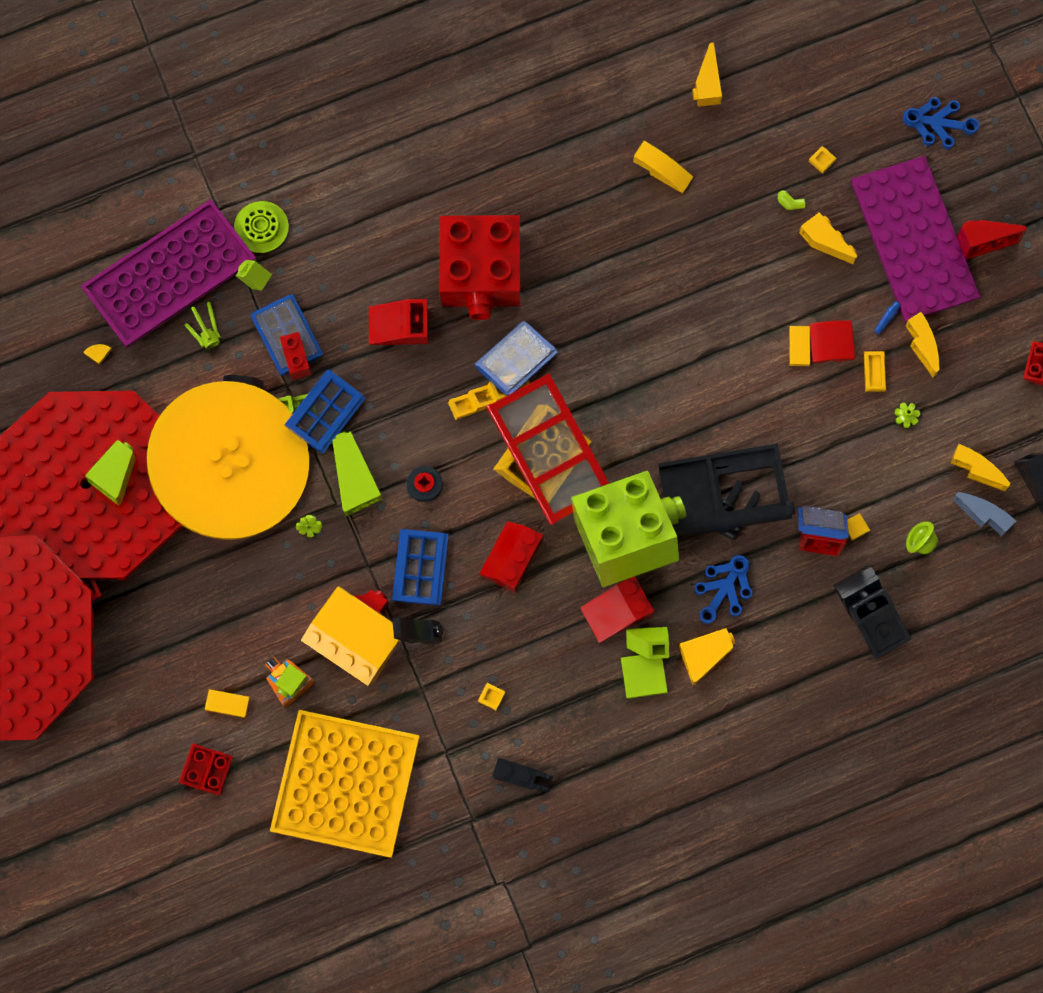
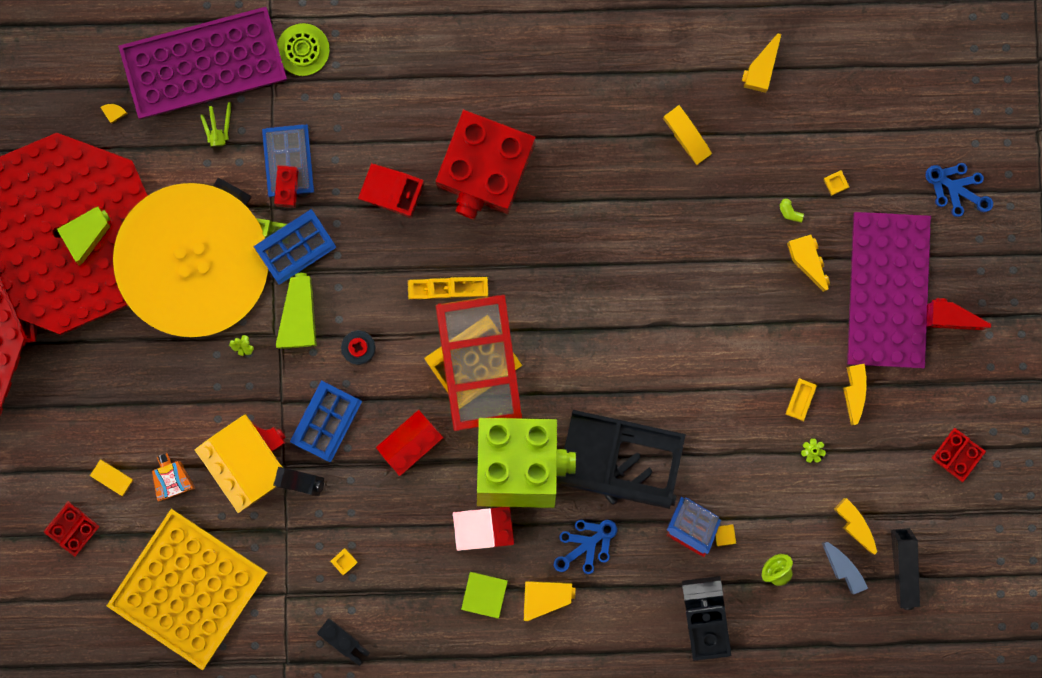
camera: 20 degrees right, 10 degrees up
(253, 275) = (277, 94): lime brick -> none
(291, 682) = (171, 485): lime brick -> none
(516, 358) = (483, 264): clear piece -> none
(649, 642) = (500, 569): lime slope -> none
(799, 346) = (743, 350): yellow tile -> none
(832, 341) = (774, 358): red slope -> none
(887, 317) = (834, 353): blue animal -> none

